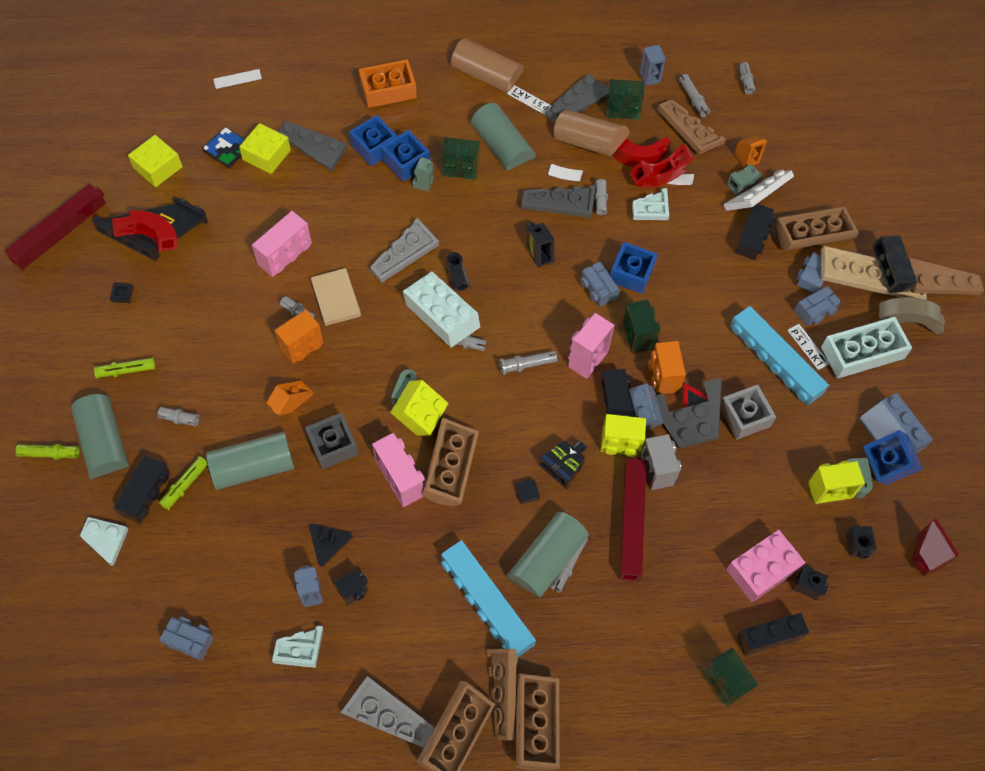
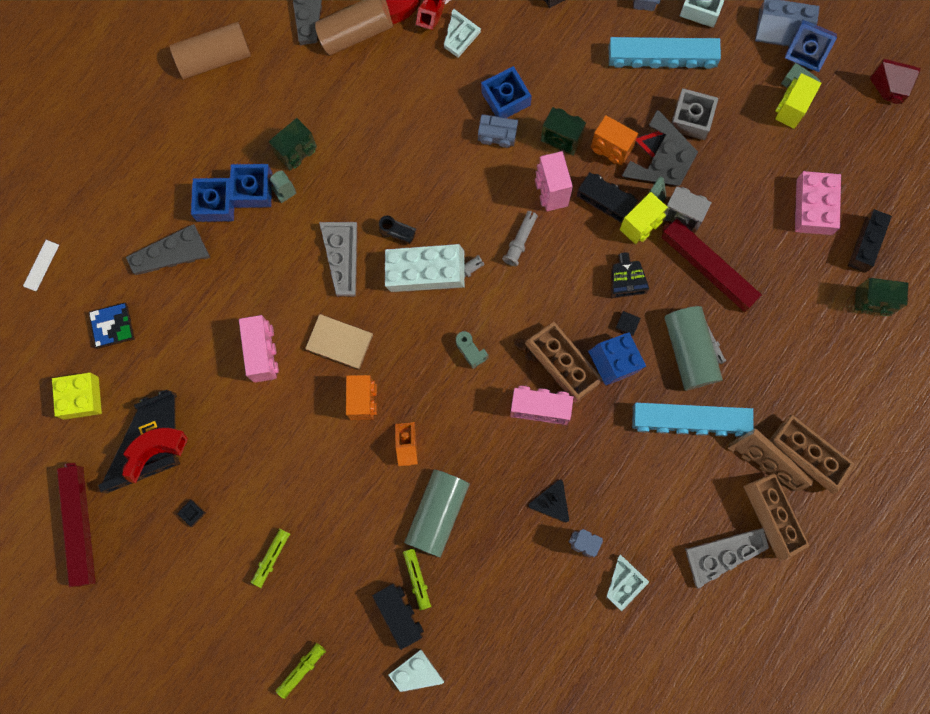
camera: 45 degrees left, 15 degrees up
(99, 435) = (319, 619): sand green brick -> none
(178, 416) = (352, 544): light grey pin -> none
(187, 638) = (554, 663): sand blue brick -> none
(265, 148) = (142, 294): neon yellow brick -> none
(293, 307) = (326, 381): light grey axle -> none
(332, 441) = (474, 438): dark grey brick -> none
(352, 586) = (606, 510): black brick -> none
(387, 83) = (162, 144): orange brick -> none
(419, 407) = (501, 351): neon yellow brick -> none
(487, 499) = (617, 358): none -> blue brick
(501, 136) = (294, 95): sand green brick -> none
(529, 99) = (273, 43): white sticker -> none
(539, 236) = (424, 145): black torso -> none
(561, 201) = (401, 92): dark grey wing -> none
(565, 173) = (370, 73): white sticker -> none
(601, 197) = (418, 64): light grey pin -> none
(646, 405) = (632, 182): sand blue brick -> none
(655, 426) = (659, 189): none -> sand green slope
(808, 346) = (670, 24): white sticker -> none
(811, 583) = (853, 183): black brick -> none
(865, 535) = (852, 116): black brick -> none

